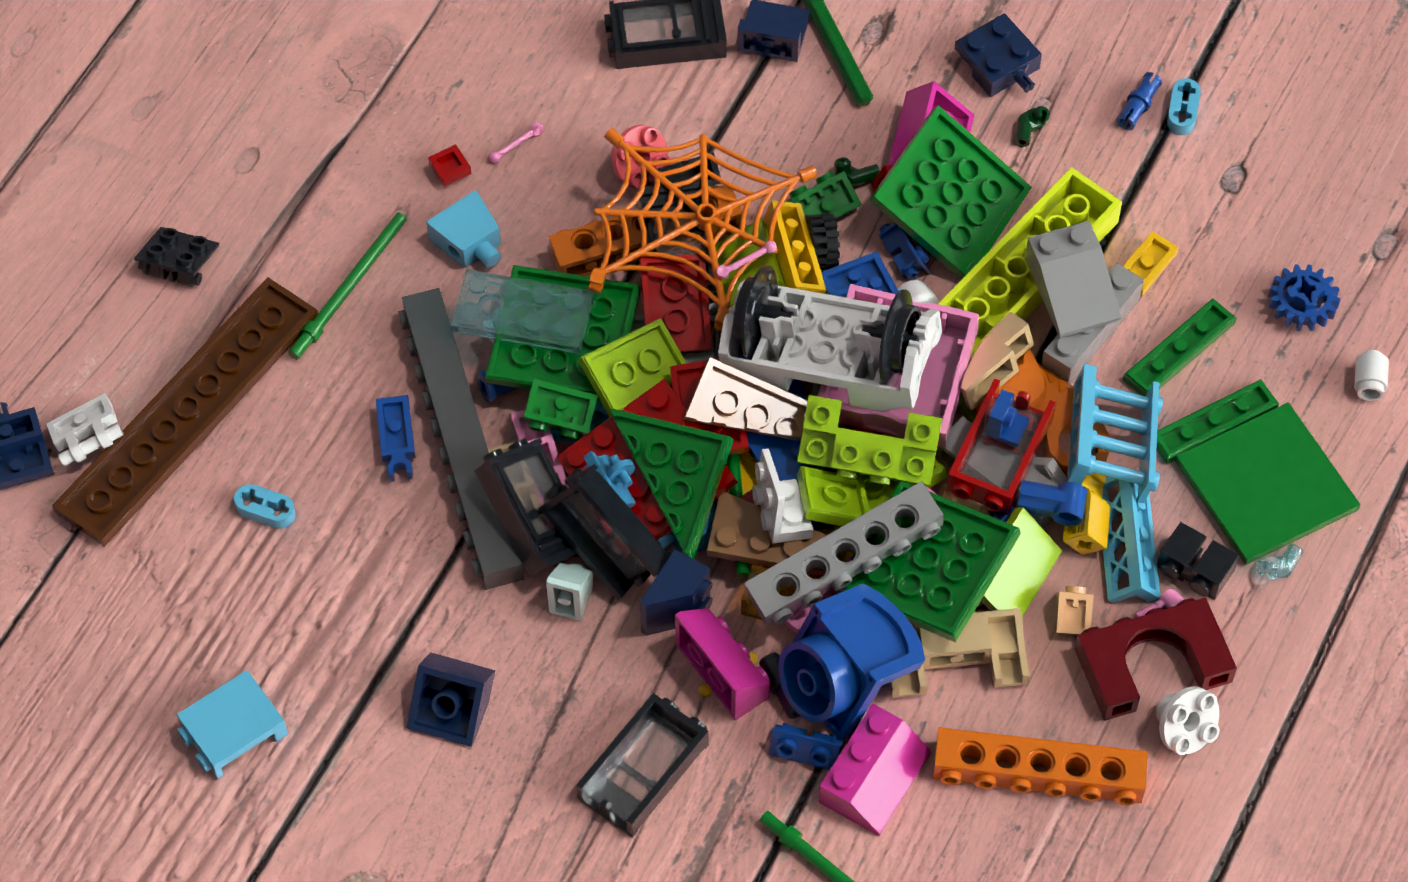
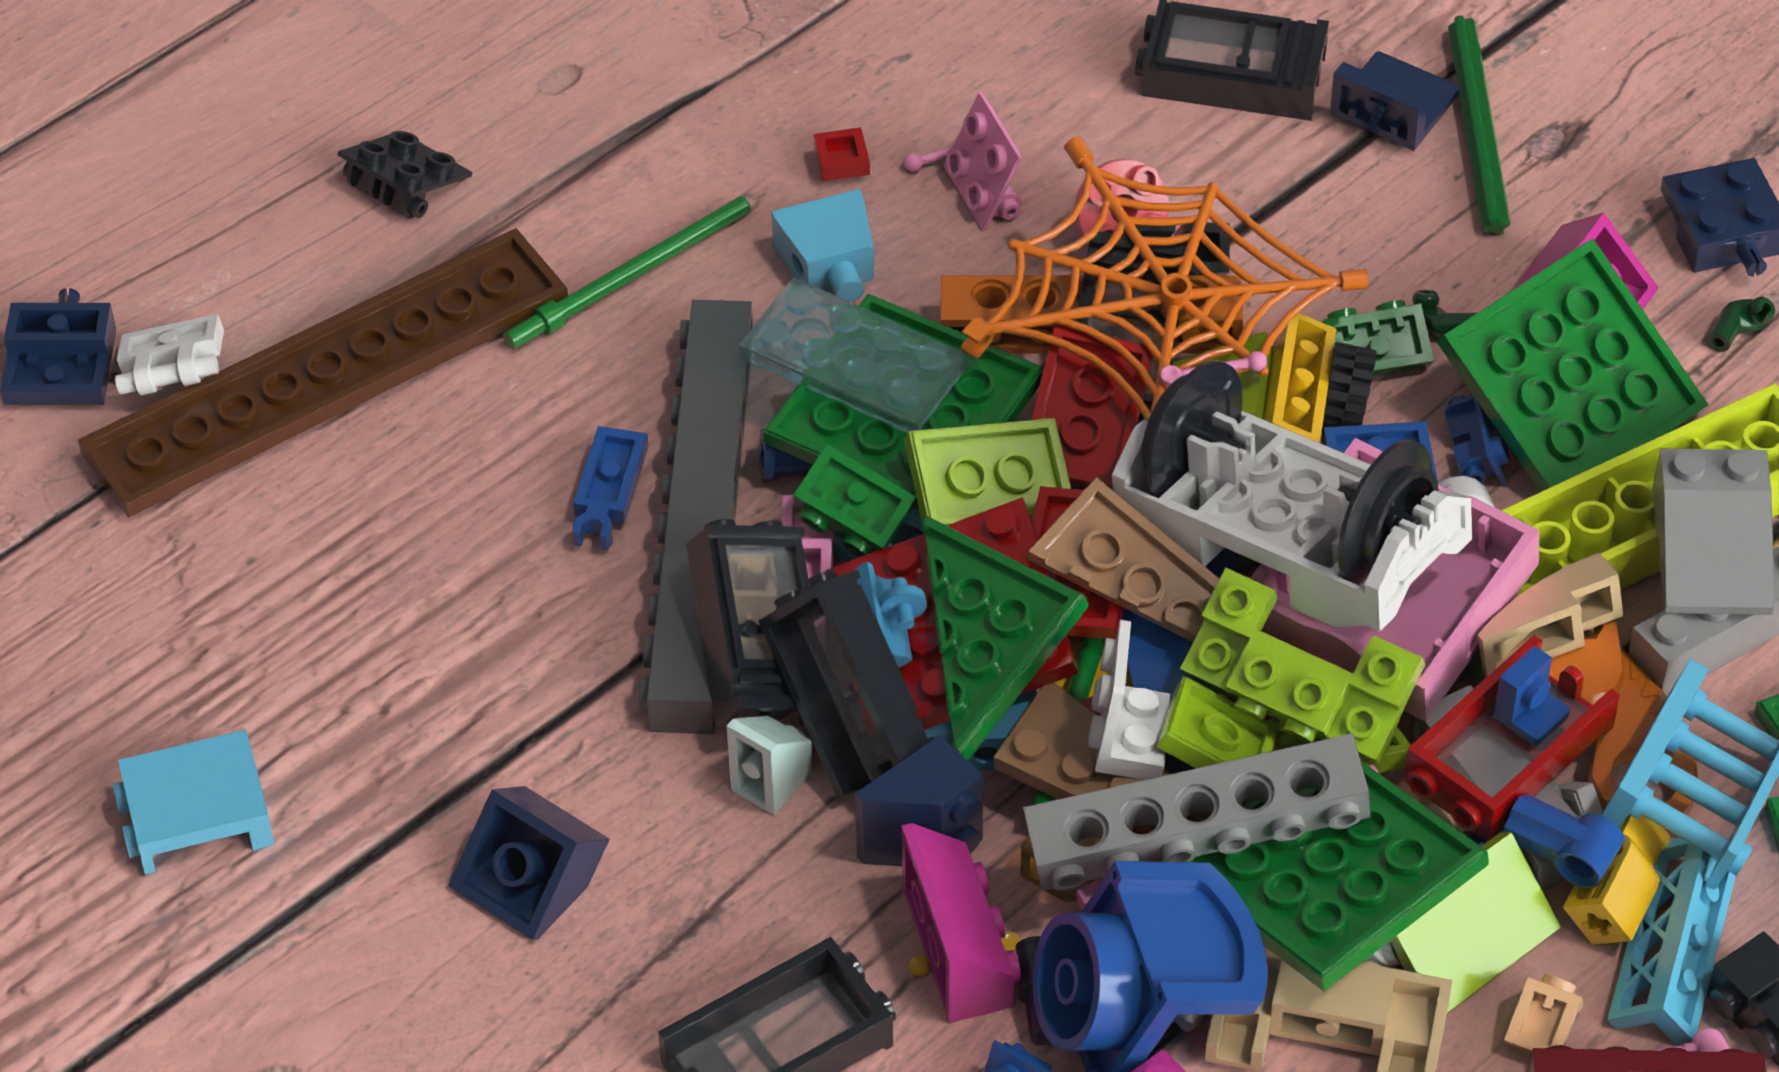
camera: 20 degrees right, 10 degrees down
(265, 504) = (384, 521): medium azure beam -> none
(544, 149) = (984, 164): none -> bright pink hinge

